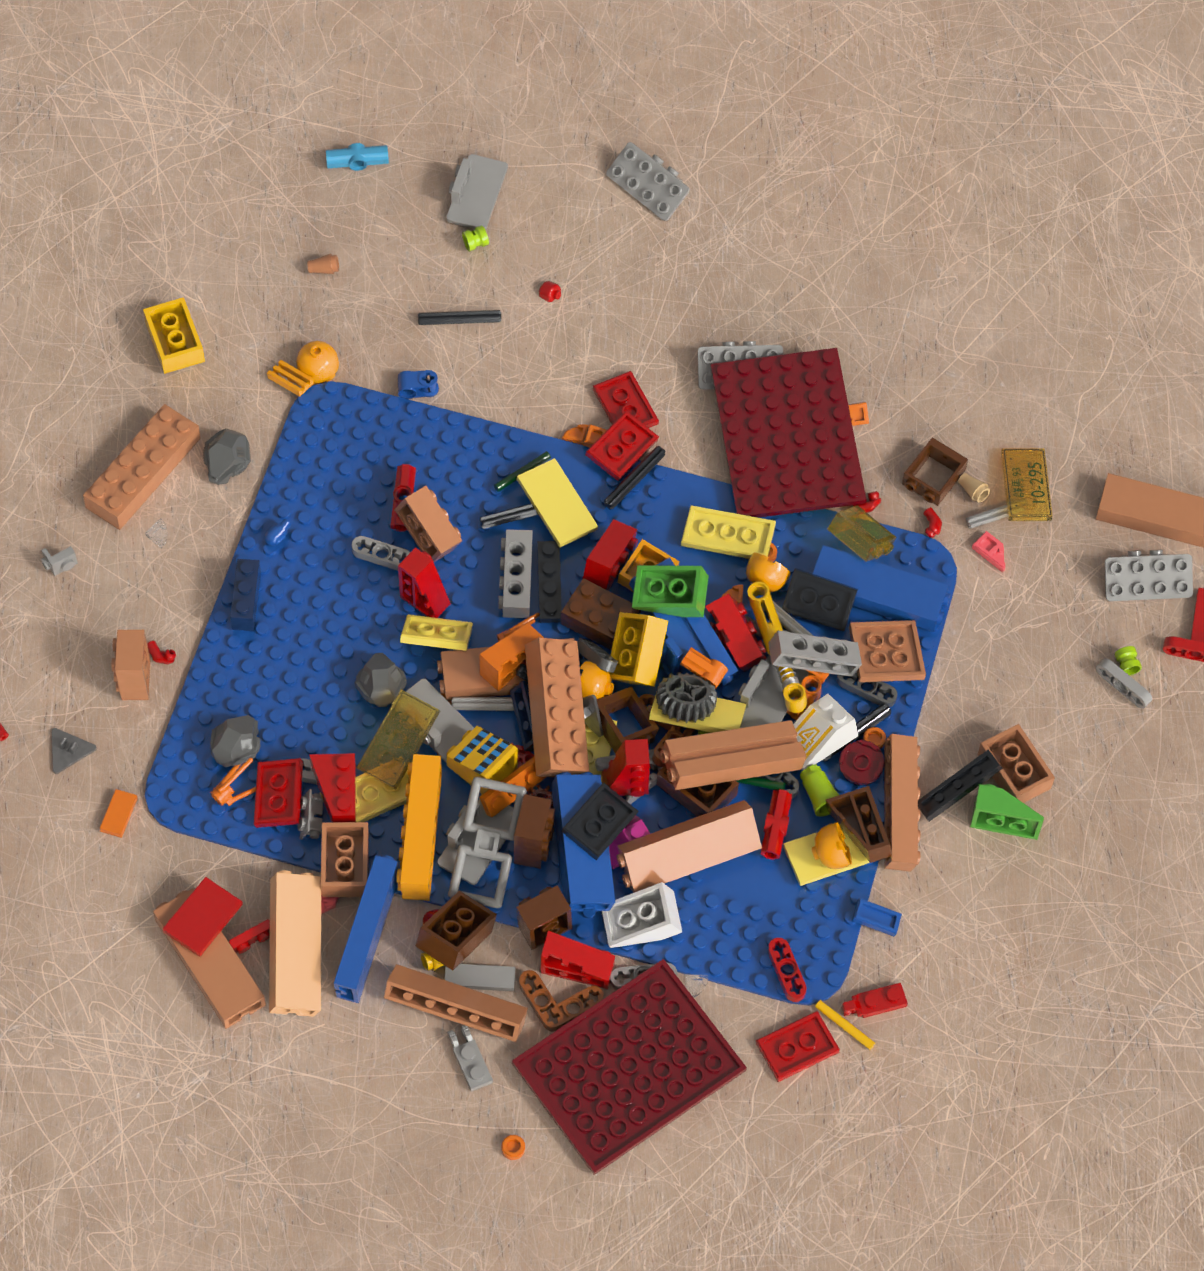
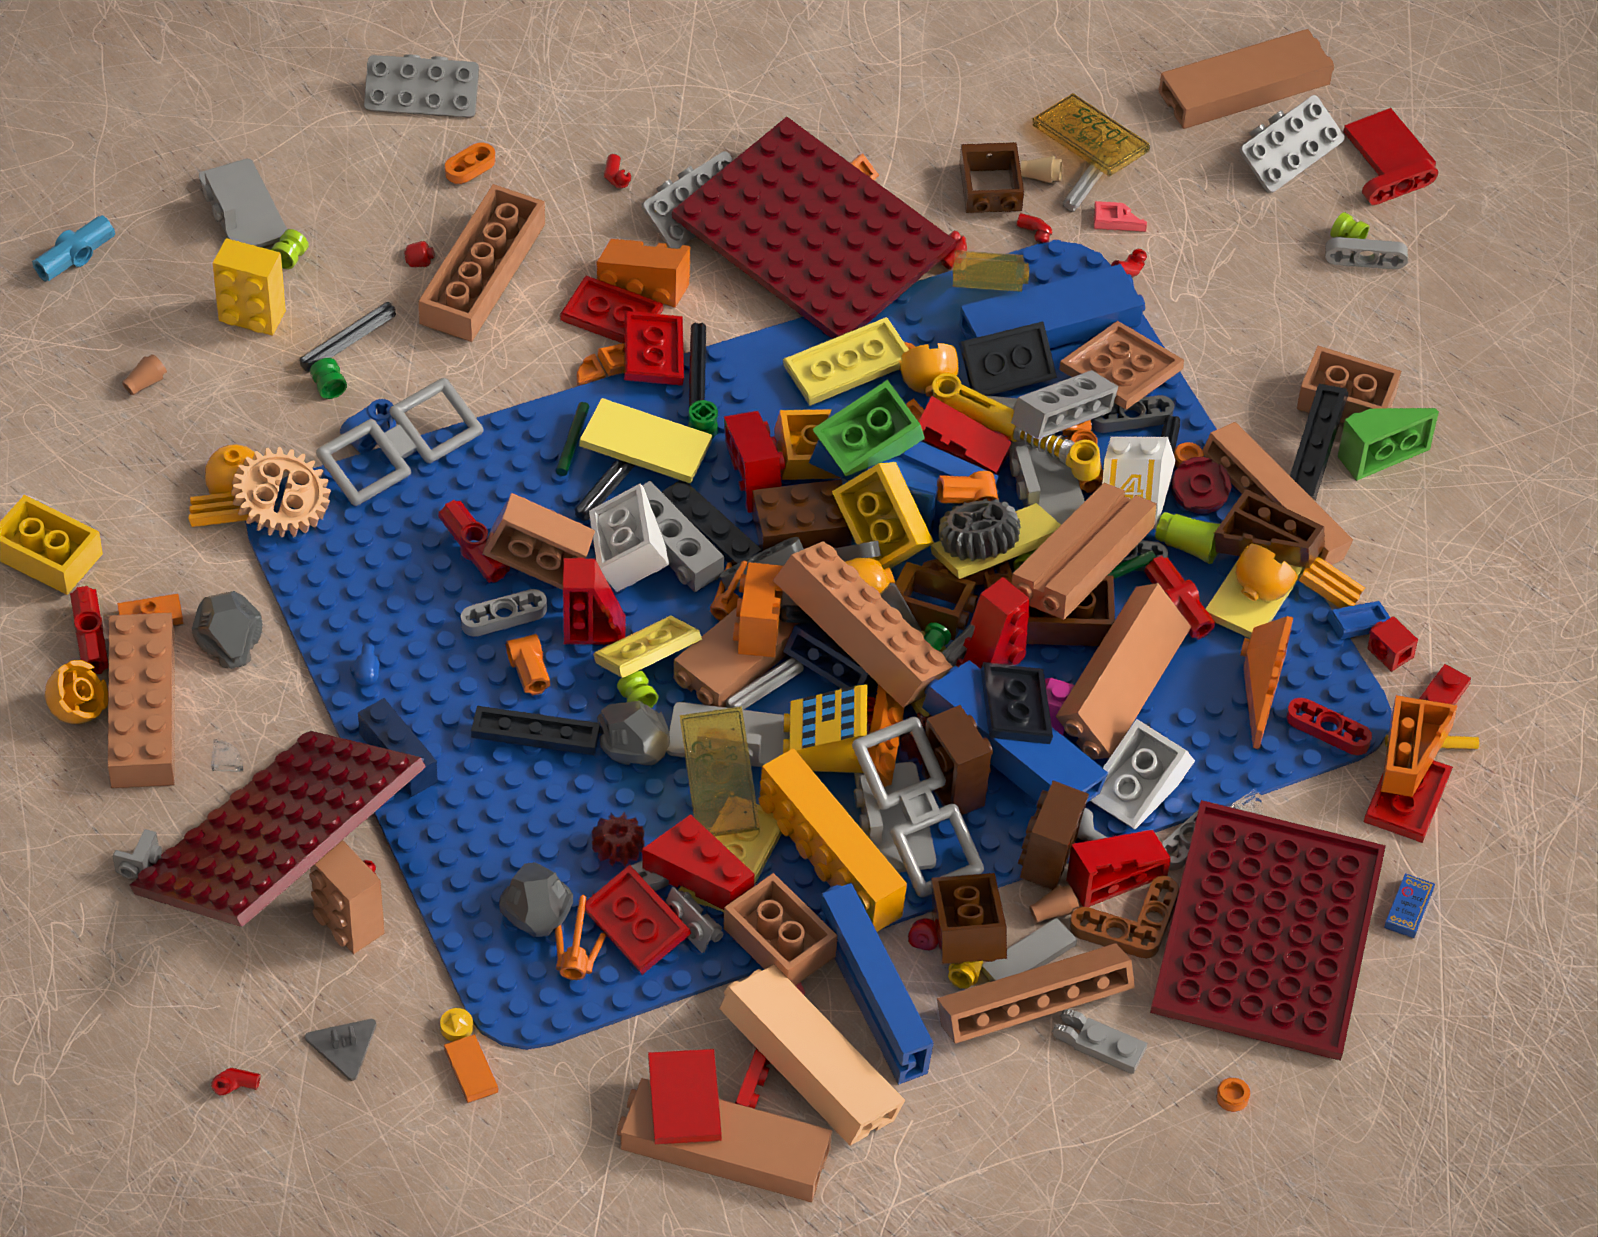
camera: 40 degrees left, 10 degrees down
(108, 437) = (76, 693): none -> light orange cylinder
(130, 596) = (276, 827): none -> dark red plate
(134, 782) = (456, 1024): none -> yellow tile
(159, 395) = (89, 628): none -> red piece
(199, 415) = (159, 604): none -> orange plate
(312, 378) = (308, 499): none -> light nougat gear
(313, 730) = (618, 839): none -> clear red gear
(331, 638) = (535, 730): none -> black plate
(367, 590) = (527, 657): none -> orange piece
(407, 656) = (636, 688): none -> lime wheel
(420, 249) = (249, 286): none -> yellow brick
(421, 405) = (399, 441): none -> light grey bar
(422, 335) = (328, 378): none -> green wheel
(484, 558) = (627, 538): none -> white slope
(522, 958) = (1056, 903): none -> nougat cone
(554, 628) = (774, 555): none -> dark grey beam
(574, 322) = (482, 263): none -> nougat brick
(580, 924) = (1087, 830): none -> light grey arm
(599, 748) = (937, 635): none -> green bush
(605, 517) = (703, 417): none -> green wheel
(631, 251) = (467, 163): none -> orange plate
(664, 393) = (646, 270): none -> orange wedge
(710, 313) = (613, 174): none -> red arm
(728, 1114) = (1409, 905): none -> blue tile
(785, 902) = (1262, 670): none -> orange wedge
(820, 1018) = (1413, 742): none -> orange wedge
(866, 868) = (1333, 580): none -> light orange tile
(880, 946) = (1392, 643): none -> red brick
(968, 589) = (1133, 263): none -> red arm

